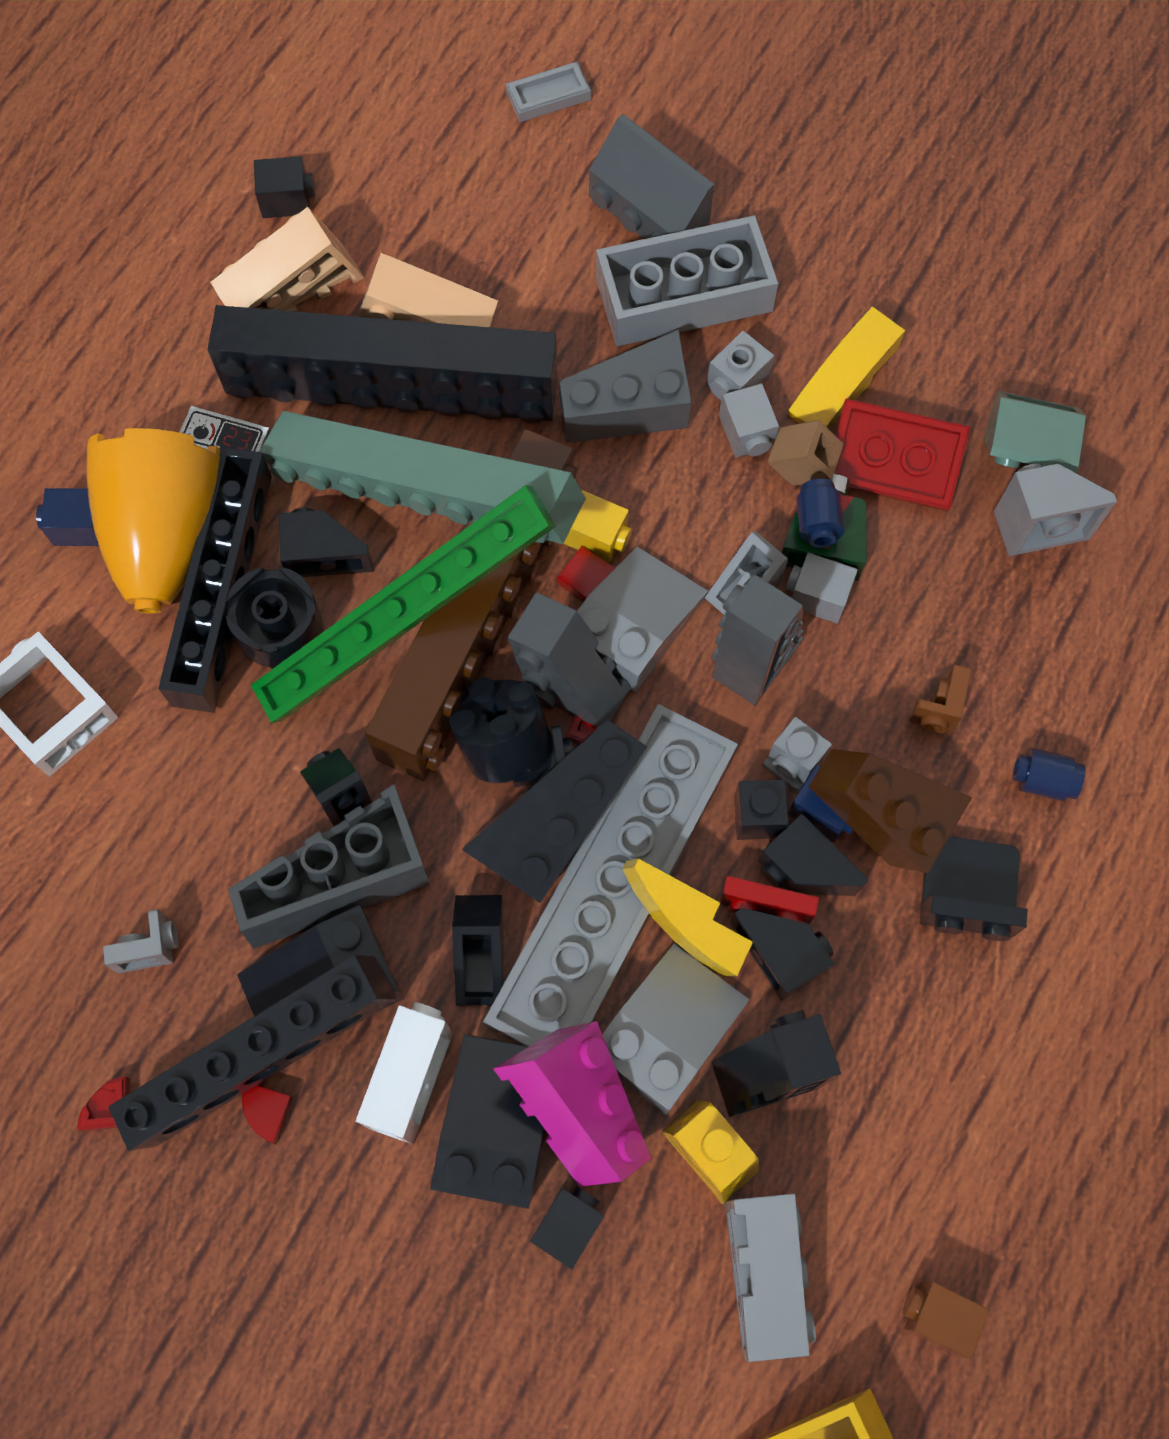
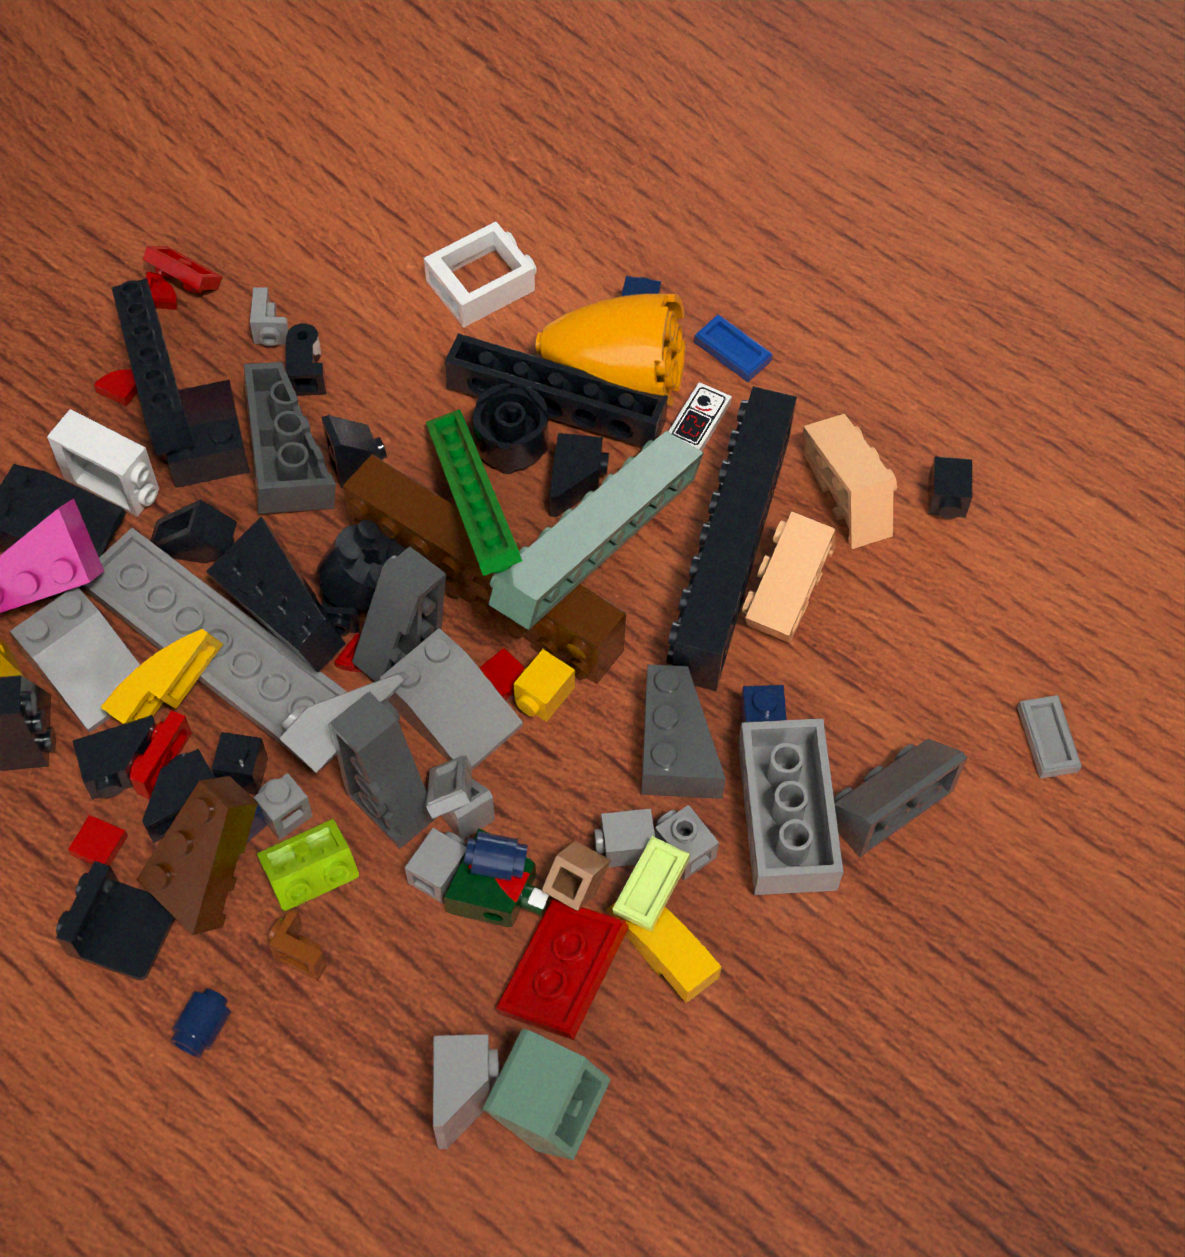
camera: 100 degrees right, 10 degrees down
(69, 1080) = (174, 264): none -> red plate
(123, 408) = (733, 348): none -> blue tile
(199, 886) = (302, 356): none -> black leg
(586, 319) = (762, 703): none -> dark blue brick
(709, 681) = (309, 728): none -> light grey slope
(718, 587) = (449, 786): none -> light grey tile
(804, 378) = (651, 883): none -> yellowish green tile
(848, 714) = (308, 865): none -> lime bracket
(880, 944) = (97, 841): none -> red tile

